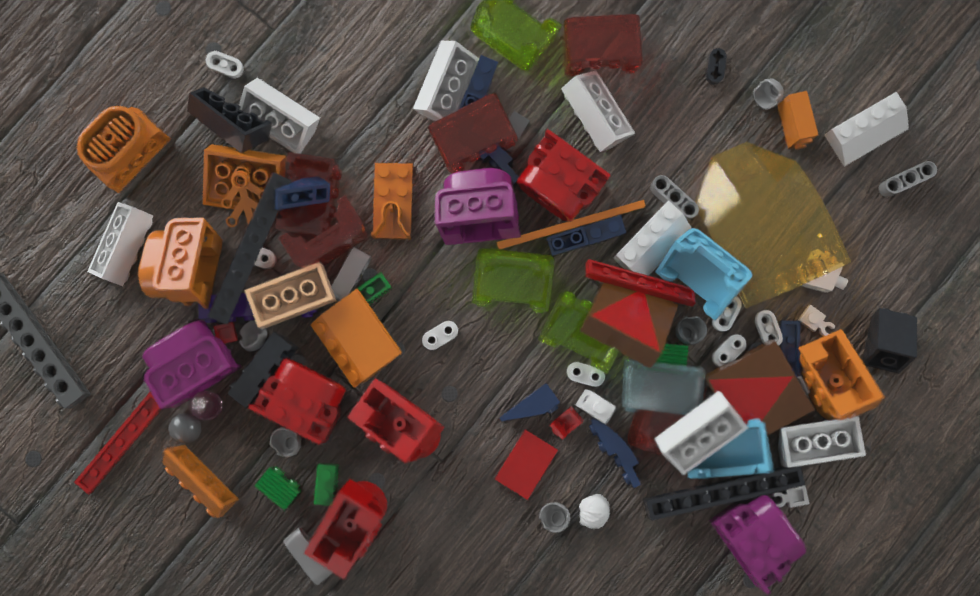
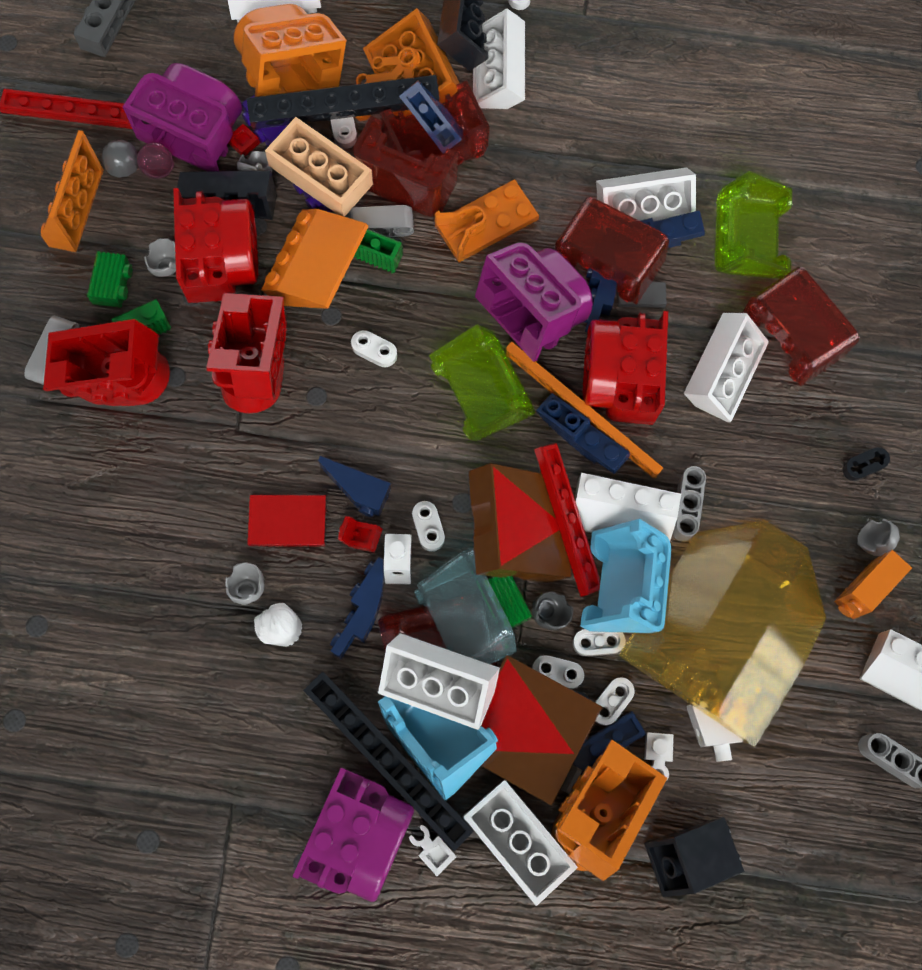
camera: 55 degrees right, 10 degrees down
(564, 328) = (454, 462): clear neon green windscreen -> none

